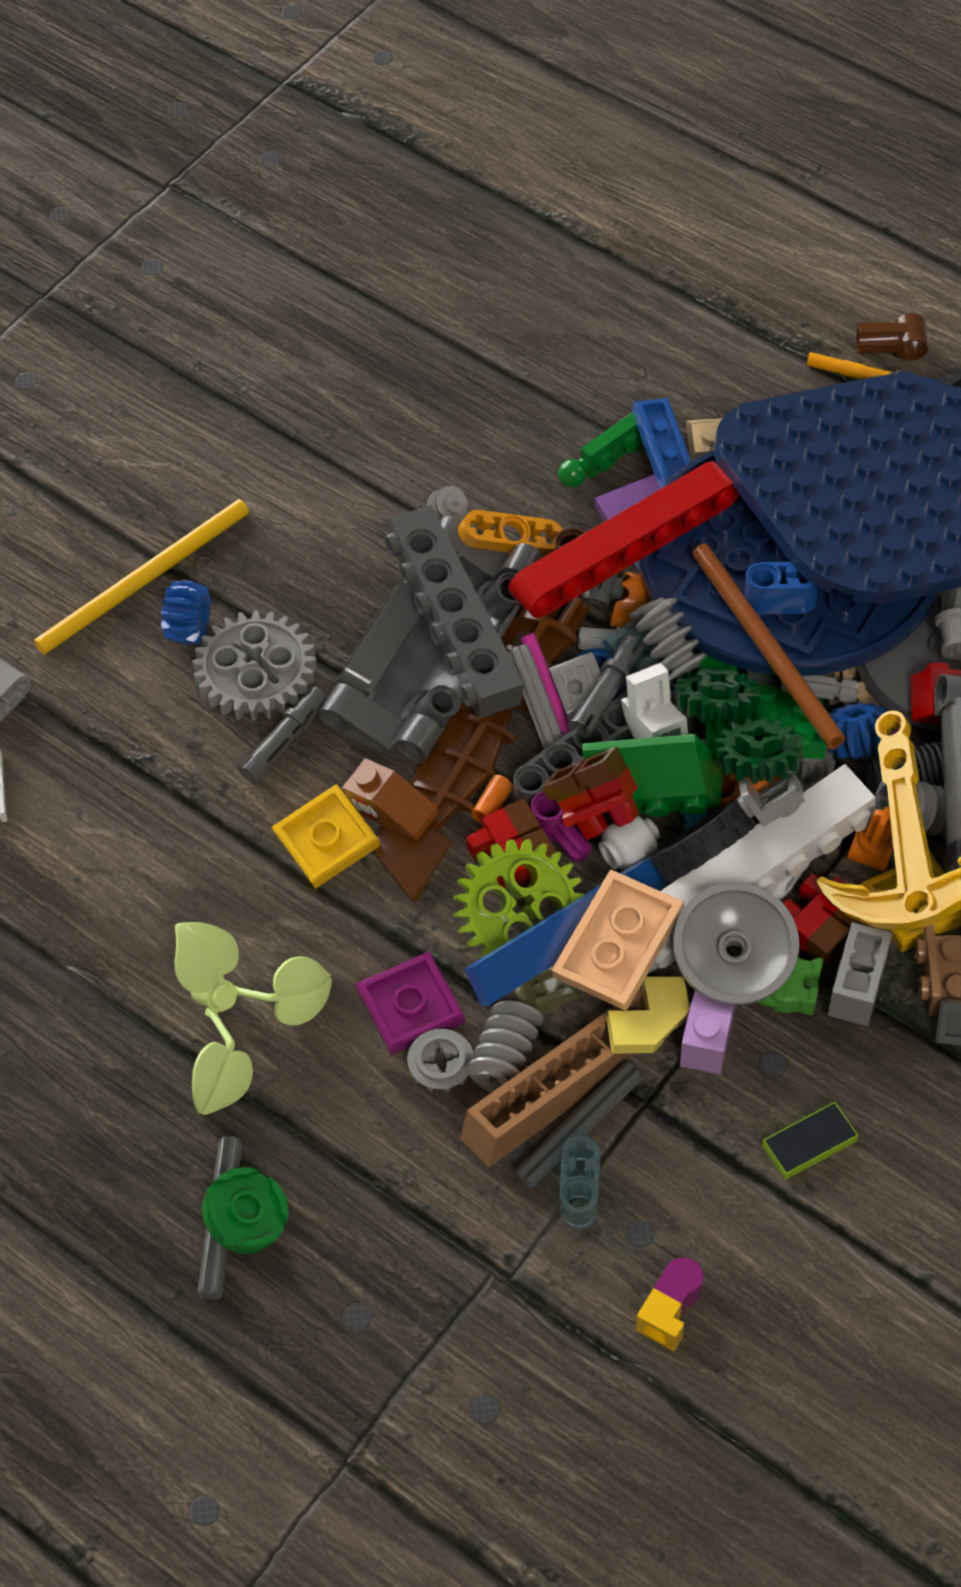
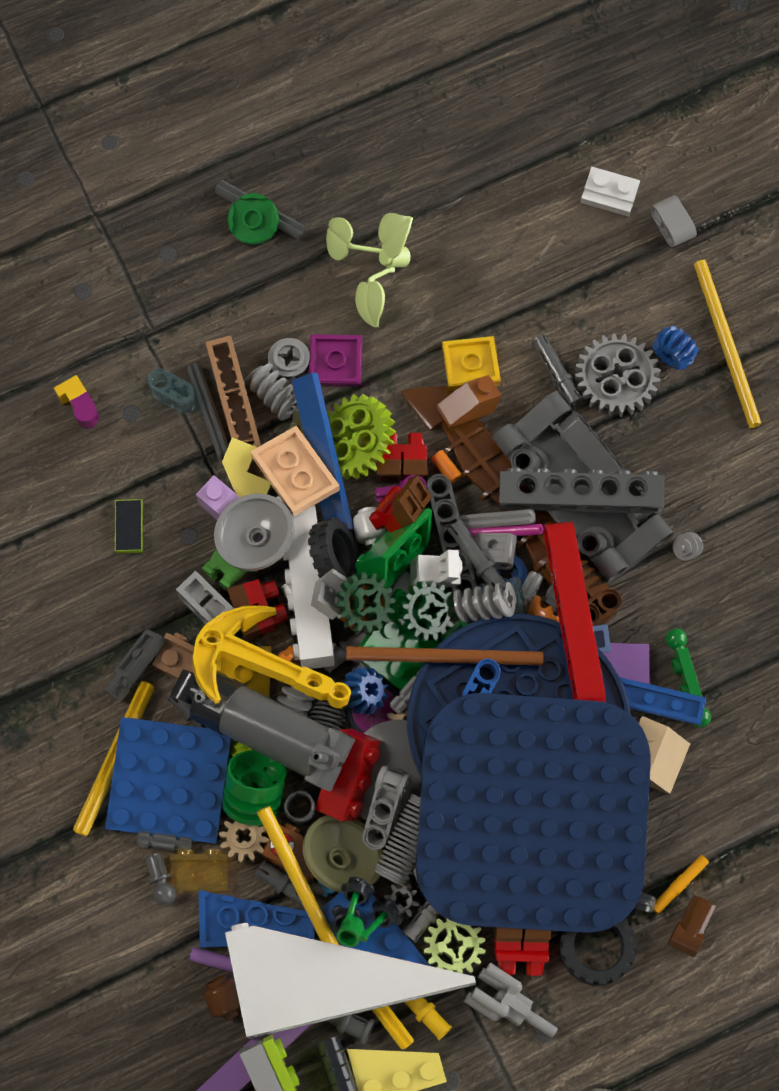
camera: 115 degrees right, 15 degrees up
(496, 538) = (640, 549): light orange beam -> none

